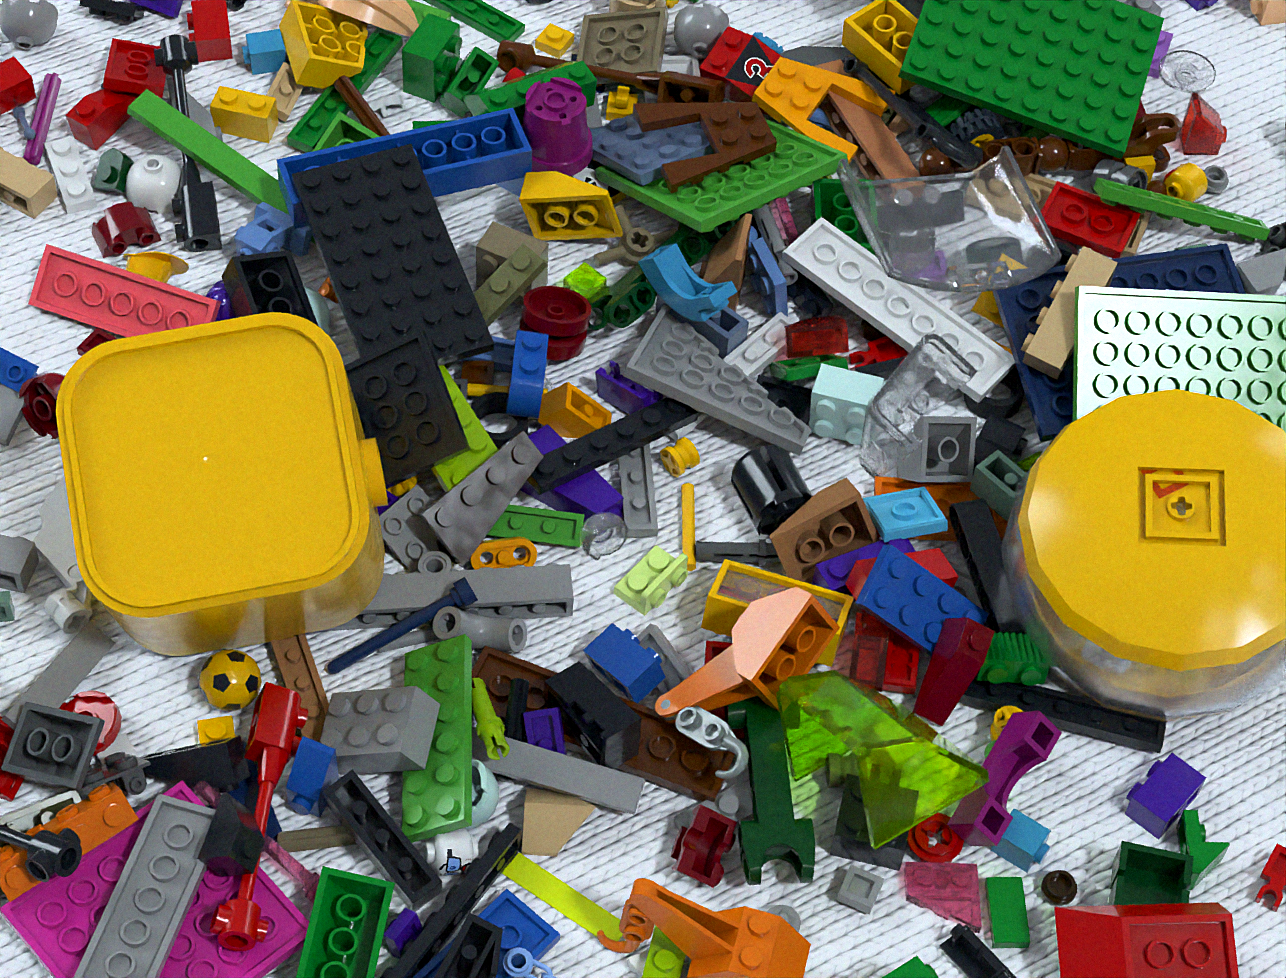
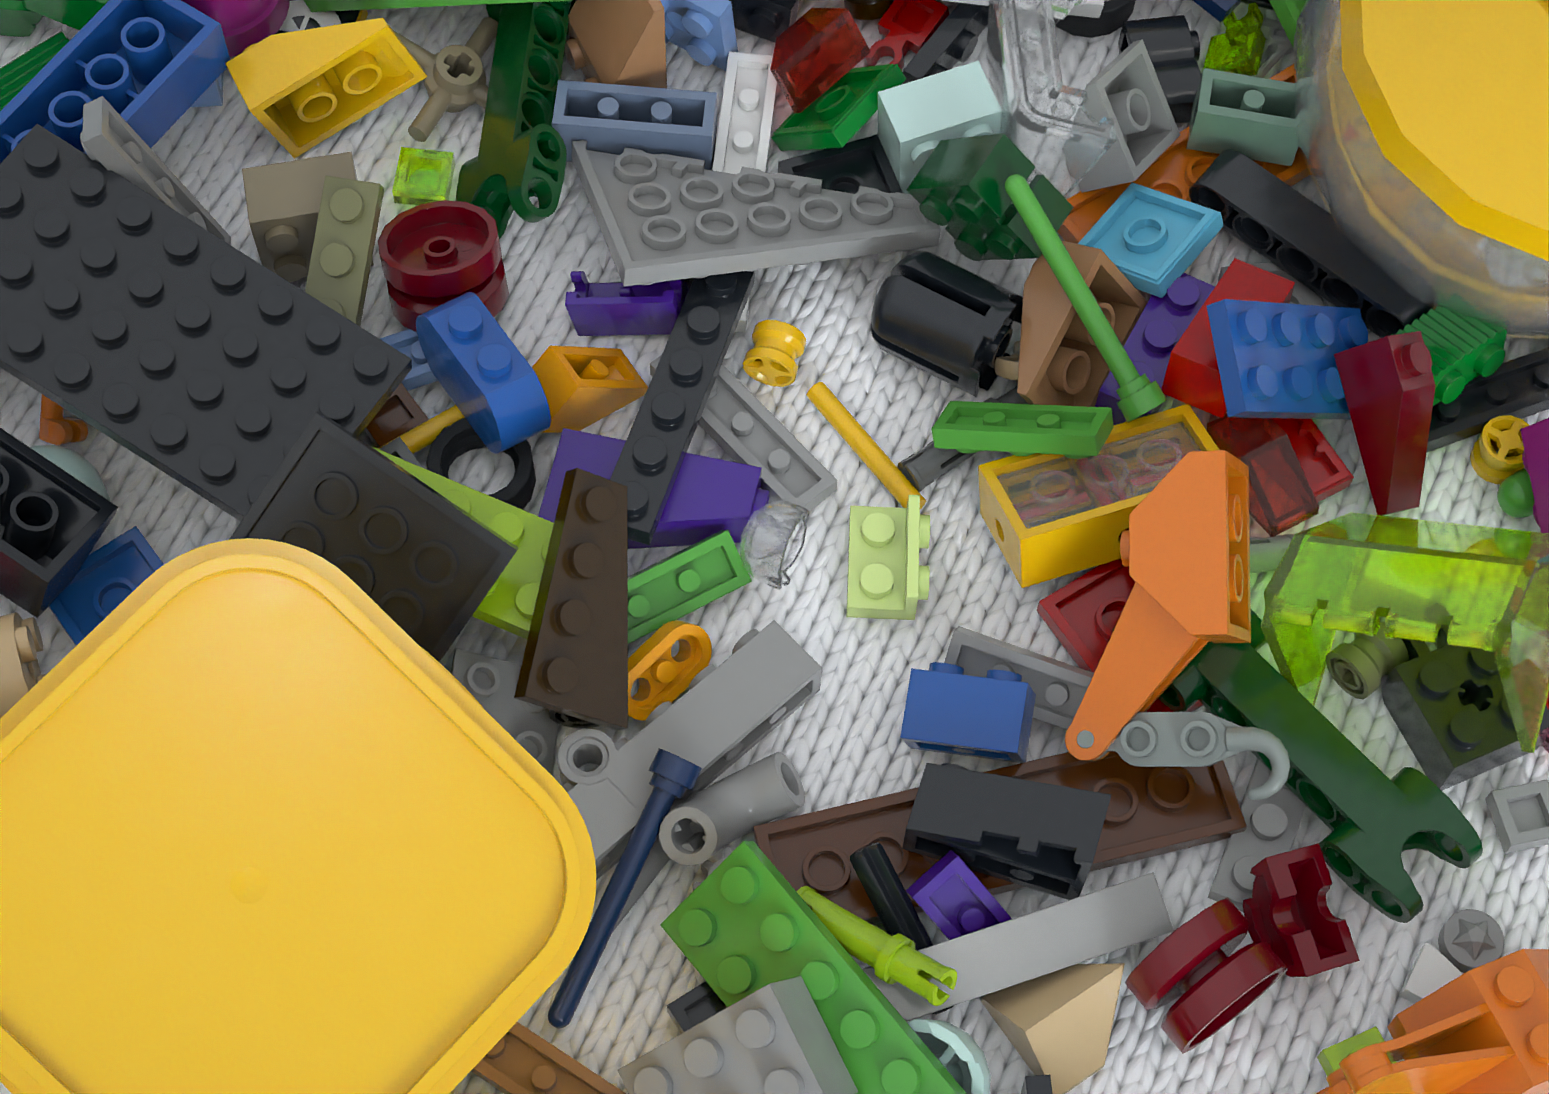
camera: 35 degrees left, 10 degrees up
(442, 183) = (120, 149): none -> light grey plate
(630, 838) = (1198, 966): none -> dark red wheel
(681, 287) = (599, 101): dark azure arch -> none
(759, 554) = (1023, 428): none -> bright green plate
(827, 436) = (966, 191): none -> dark green piece
(827, 571) = (1135, 391): none -> bright green piece

